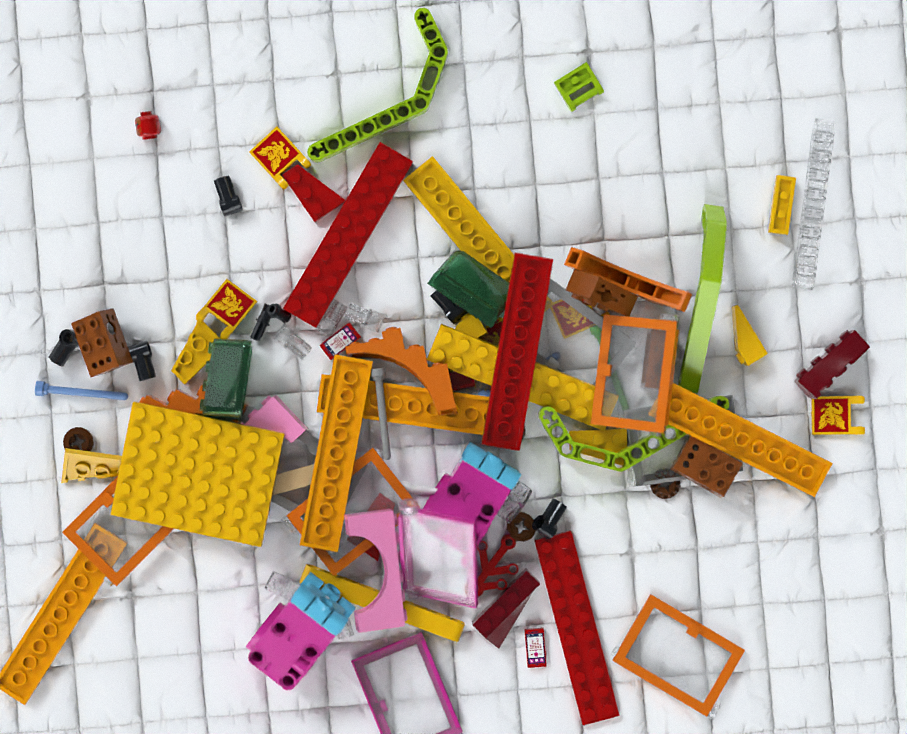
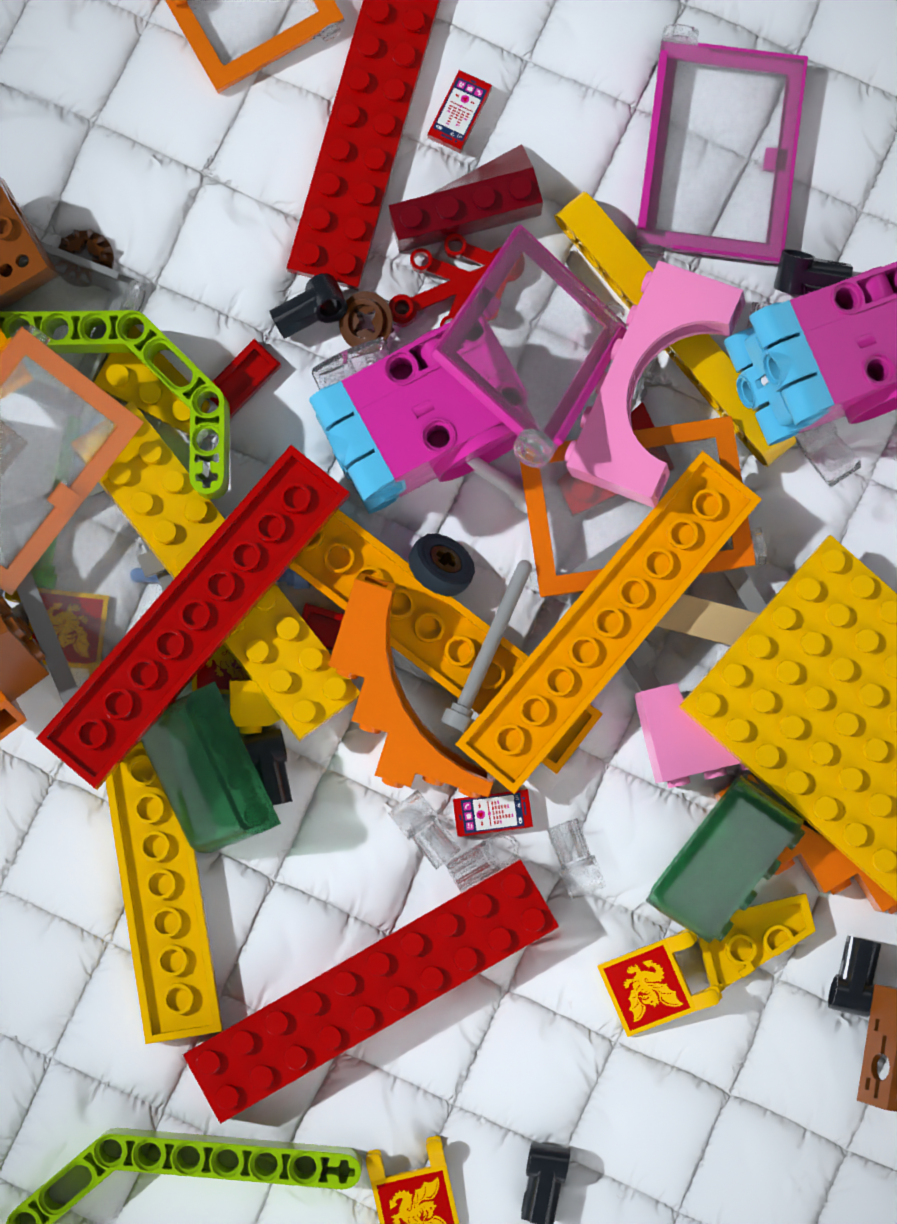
camera: 150 degrees left, 5 degrees down
(262, 322) = (608, 923): black axle -> none
(276, 311) = (573, 927): black pin -> none
(312, 193) = (393, 1100): red wing -> none
(337, 661) = (804, 272): none -> black piece
(424, 436) = (441, 564): none -> black bush
(561, 471) = (245, 375): none -> red tile

